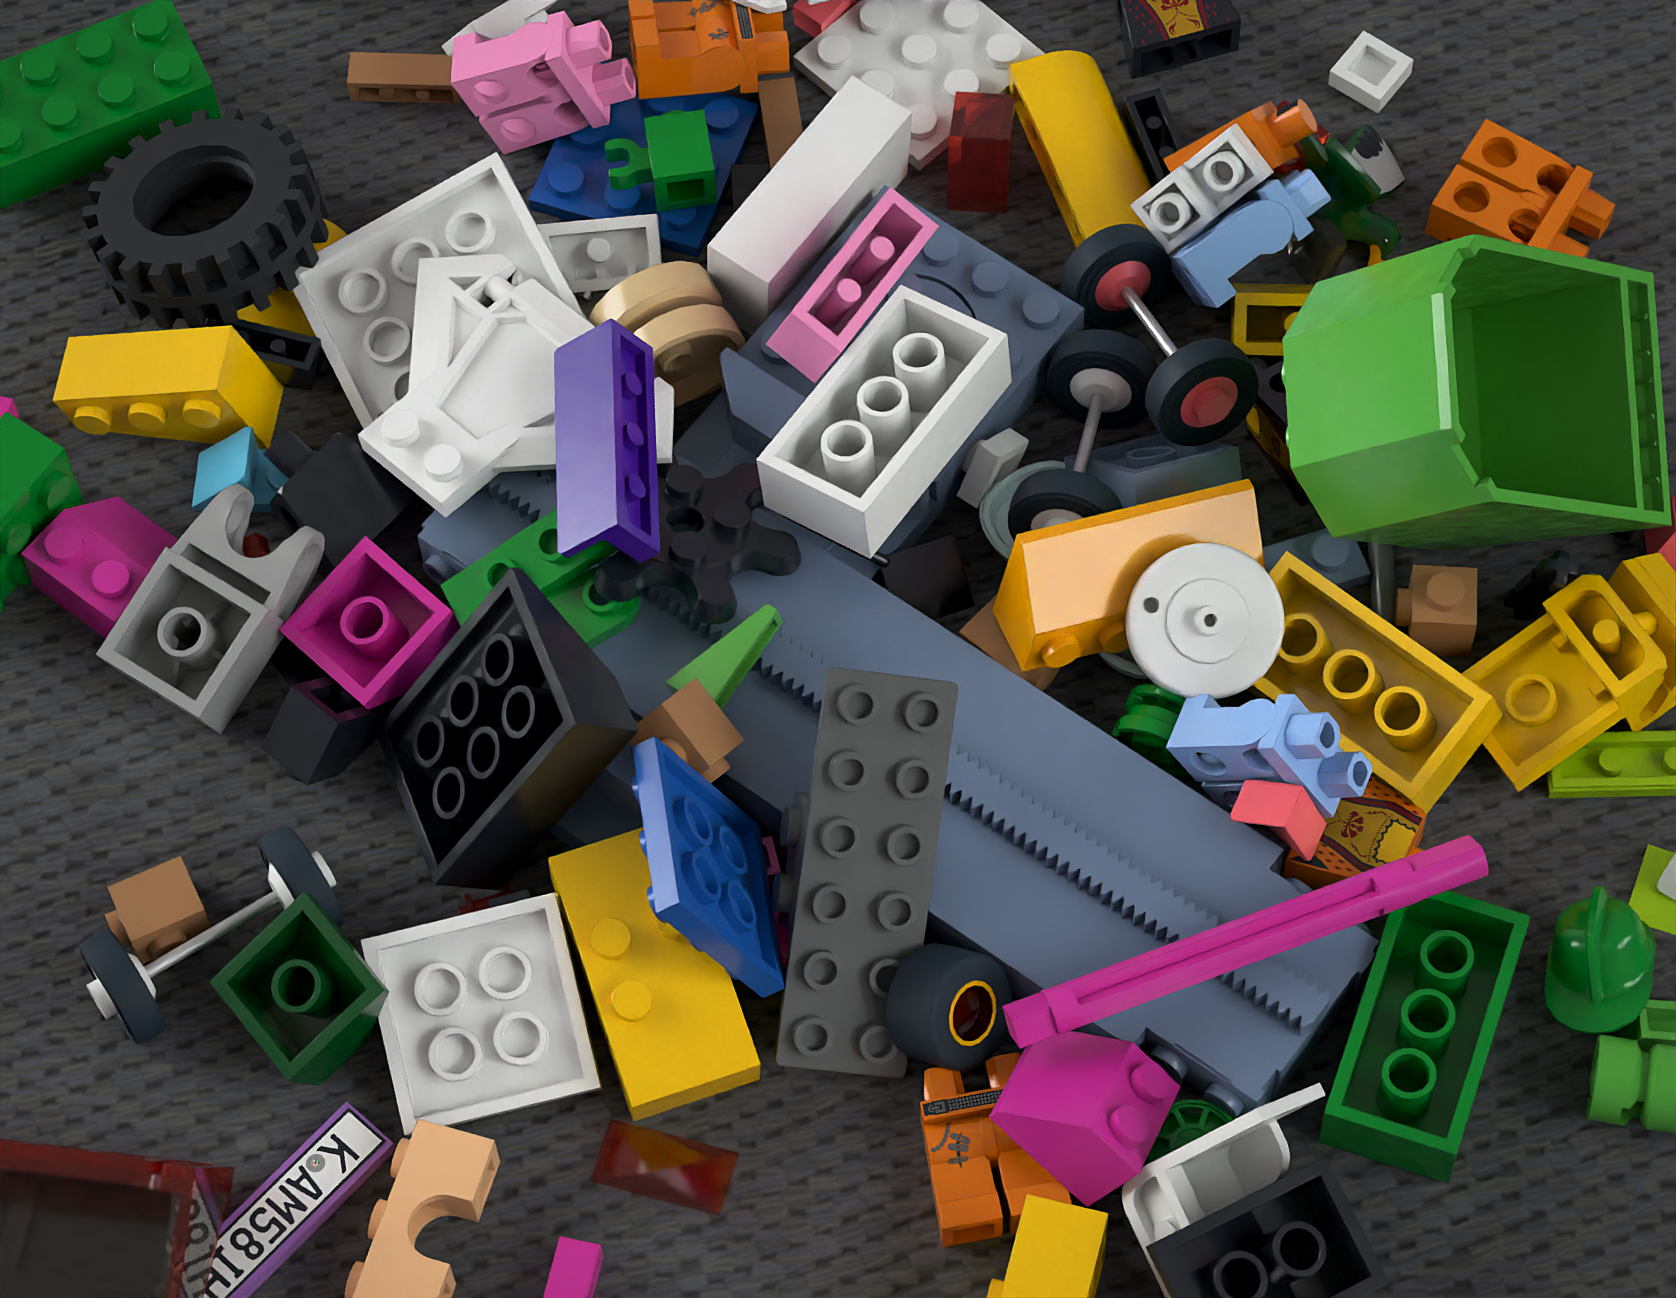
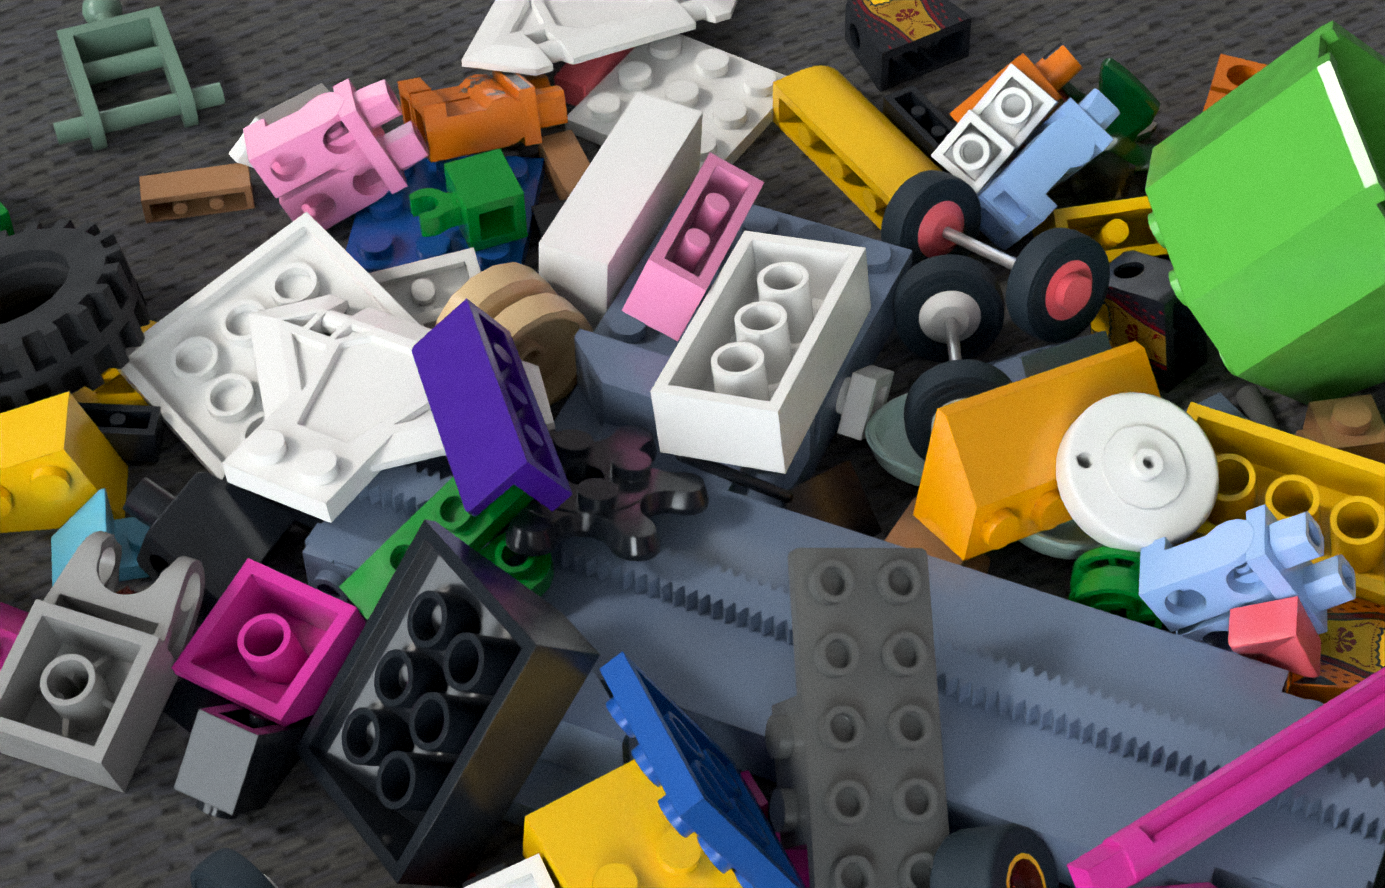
camera: 15 degrees left, 15 degrees down
(692, 729) = (654, 652): medium nougat brick -> none
(731, 658) = (655, 609): bright green piece -> none
(980, 152) = (769, 150): clear red slope -> none
(1370, 71) = (1094, 41): white plate -> none

